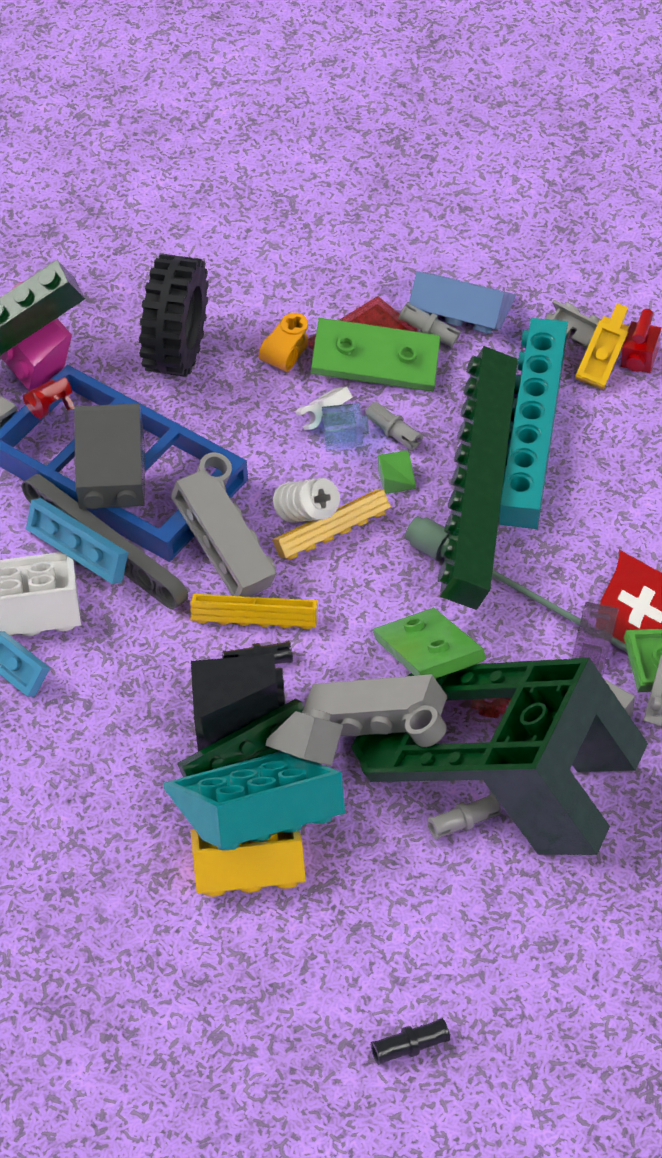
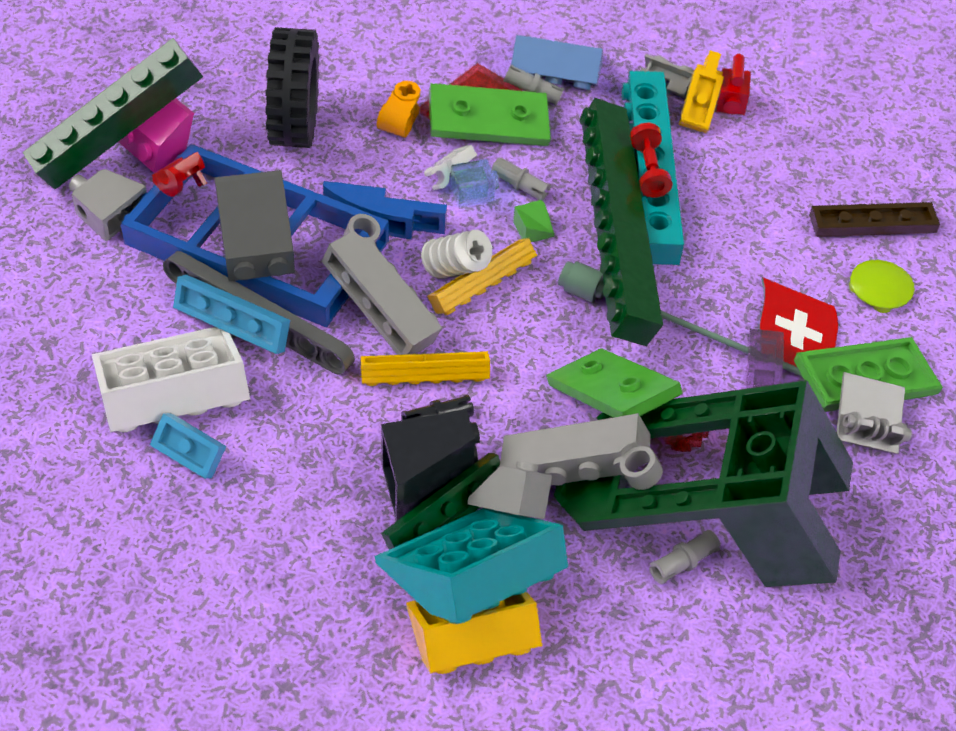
camera: 15 degrees left, 0 degrees up
(262, 454) = (402, 214): none -> blue slope
(523, 442) = (655, 181): none -> red wheel

